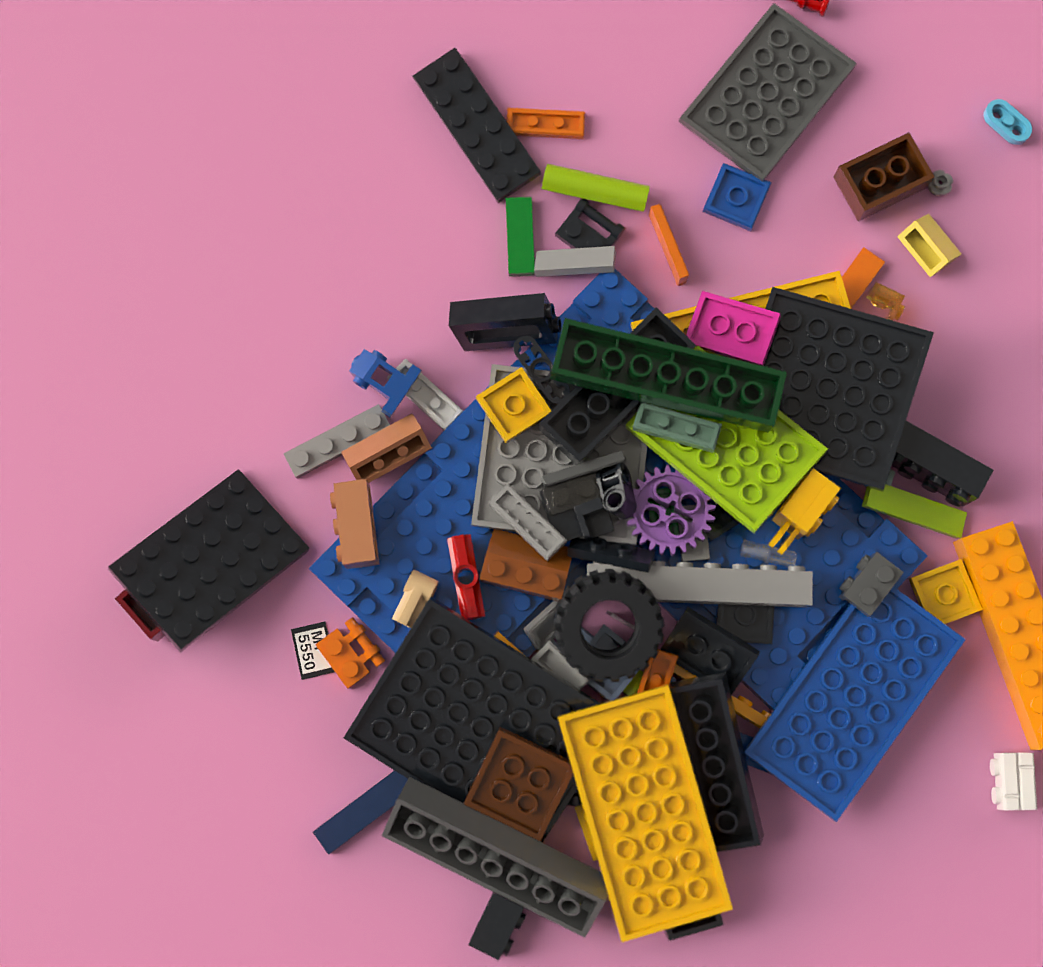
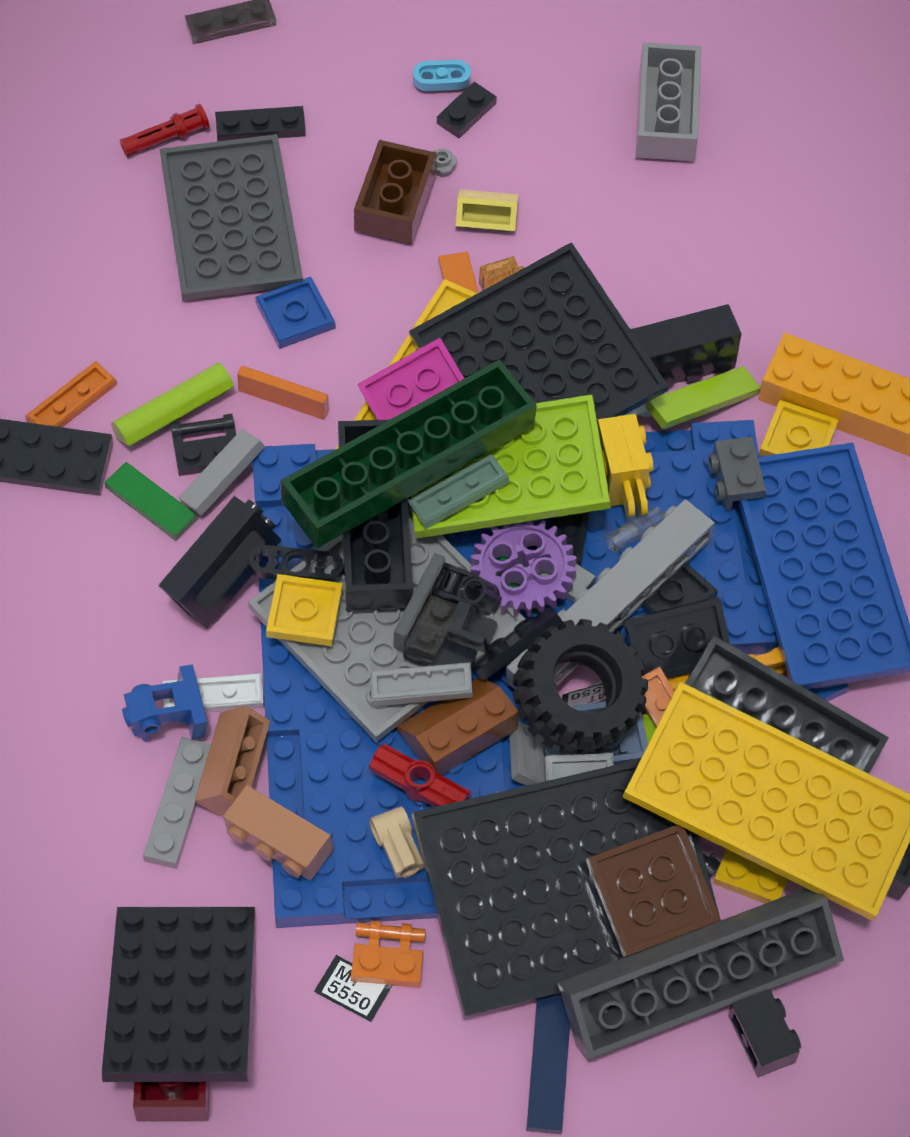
camera: 50 degrees left, 20 degrees down
(857, 44) = (240, 124): none -> black plate
(997, 161) = (466, 110): none -> black plate

